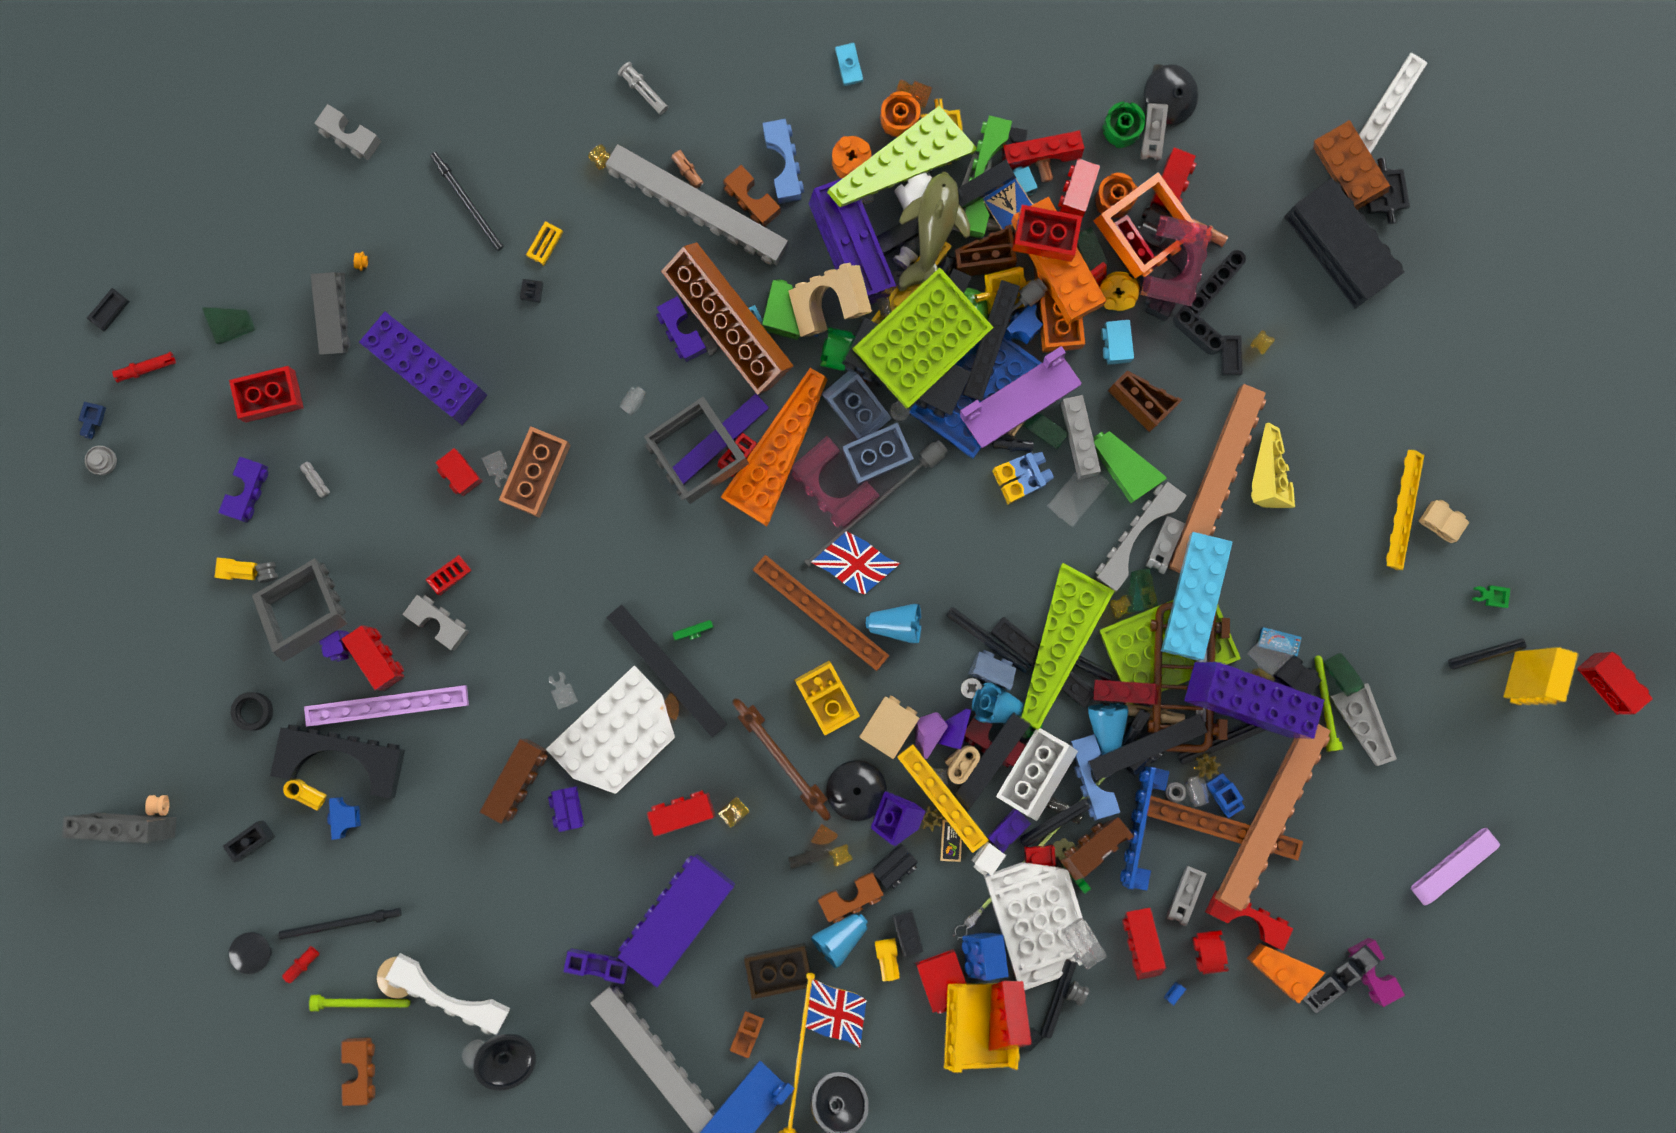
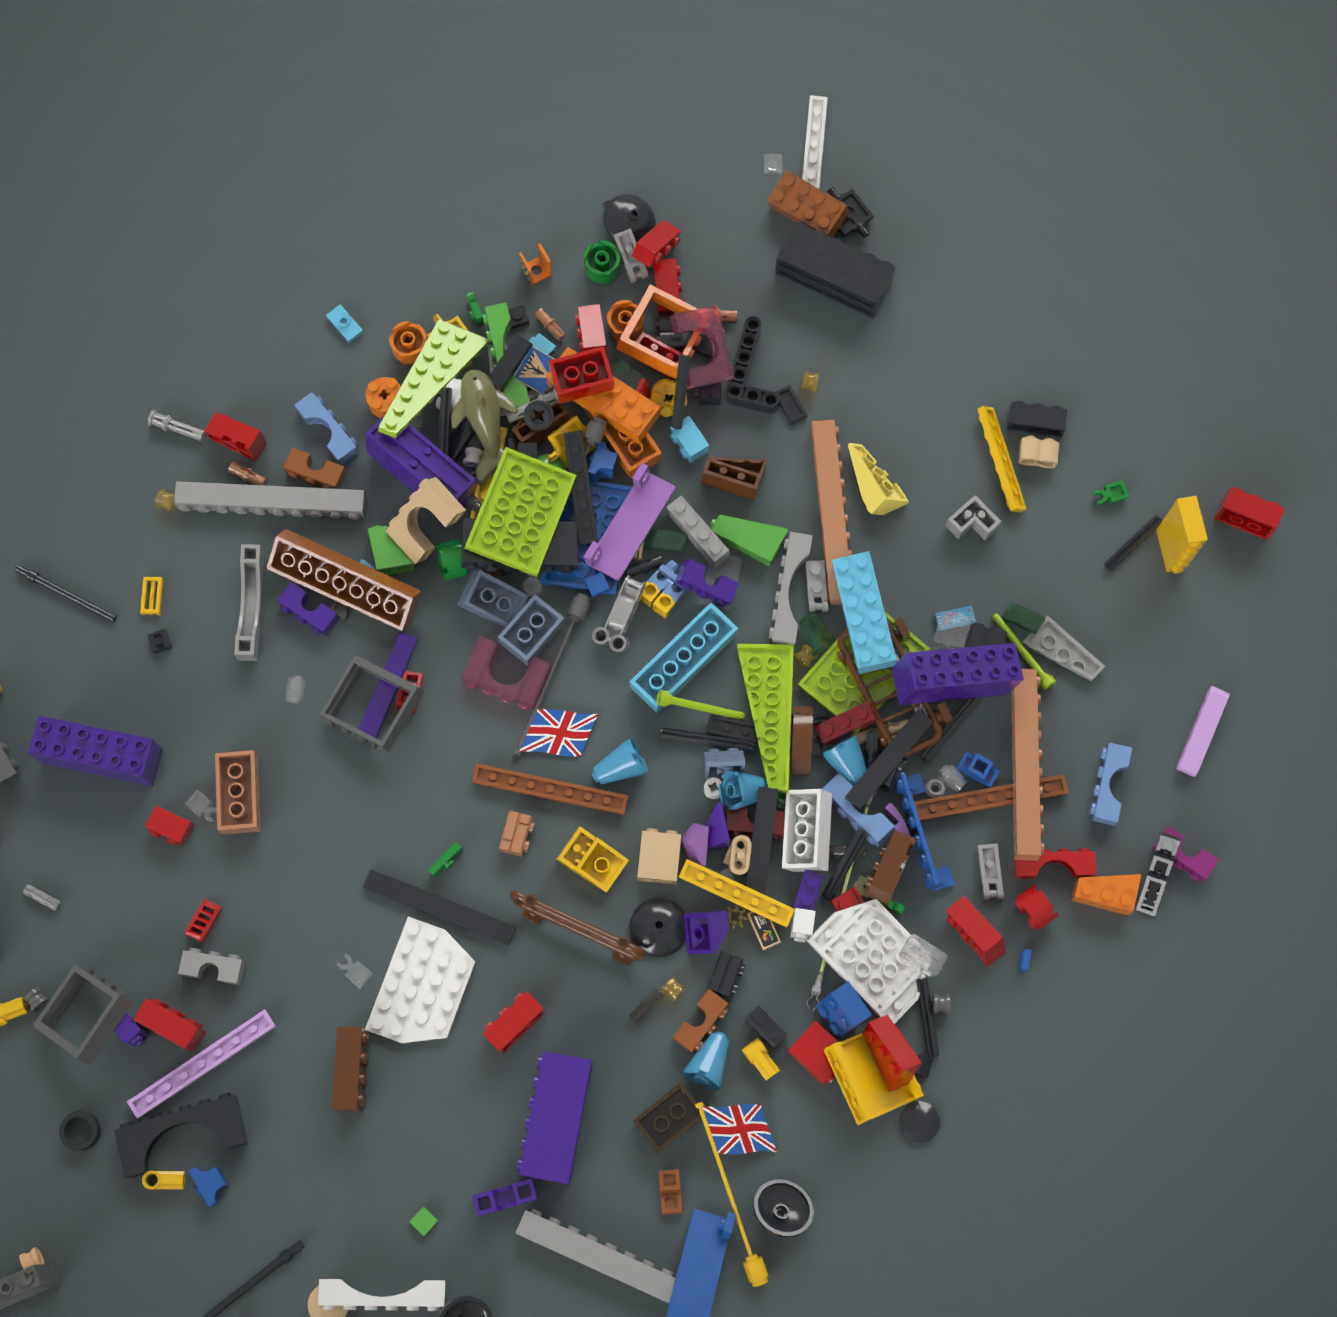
camera: 20 degrees left, 10 degrees down
(248, 841) = (132, 1248): black brick -> none
(516, 947) = (423, 1221): none -> bright green tile
(567, 809) = (409, 1072): dark purple brick -> none
(643, 273) = (251, 595): none -> light grey arch
(672, 706) = (459, 936): clear orange tile -> none
(694, 126) = (236, 436): none -> red wedge
(733, 812) = (559, 1001): clear yellow slope -> none
(760, 483) = (442, 703): orange wing -> none
(769, 639) = (516, 834): none -> nougat brick
(824, 835) = (650, 980): clear orange tile -> none
(896, 210) = (444, 419): none -> black axle
(918, 91) = (414, 316): clear orange plate -> none
(960, 441) = (597, 584): none -> blue tile
(968, 482) = (621, 615): none -> light grey piece
(968, 585) = (665, 699): none -> lime piece
(978, 114) = (475, 312): none -> green plate
(982, 257) = (538, 424): none -> black gear
(997, 239) = (550, 398): none -> light grey pin
(1002, 1088) = (919, 1121): none -> black dish
(1006, 551) = (684, 656): none -> medium azure brick
(1052, 480) = (691, 578): none -> dark purple arch
(1062, 146) = (561, 303): red arch -> none
(1067, 95) = (542, 261): none -> orange piece
(1076, 686) = (802, 740): none -> reddish brown arch
(1125, 812) = (896, 817): none -> medium lavender slope
(1133, 294) = (680, 391): none -> black axle
(1185, 132) = (656, 243): none -> red brick
(1213, 770) = (954, 749): clear yellow gear -> none
(1325, 889) = (1106, 807): none -> medium blue arch
(1338, 105) = (772, 163): none -> clear plate
(1351, 553) = (976, 516): none -> light grey brick
(1460, 487) = (1037, 418): none -> black brick

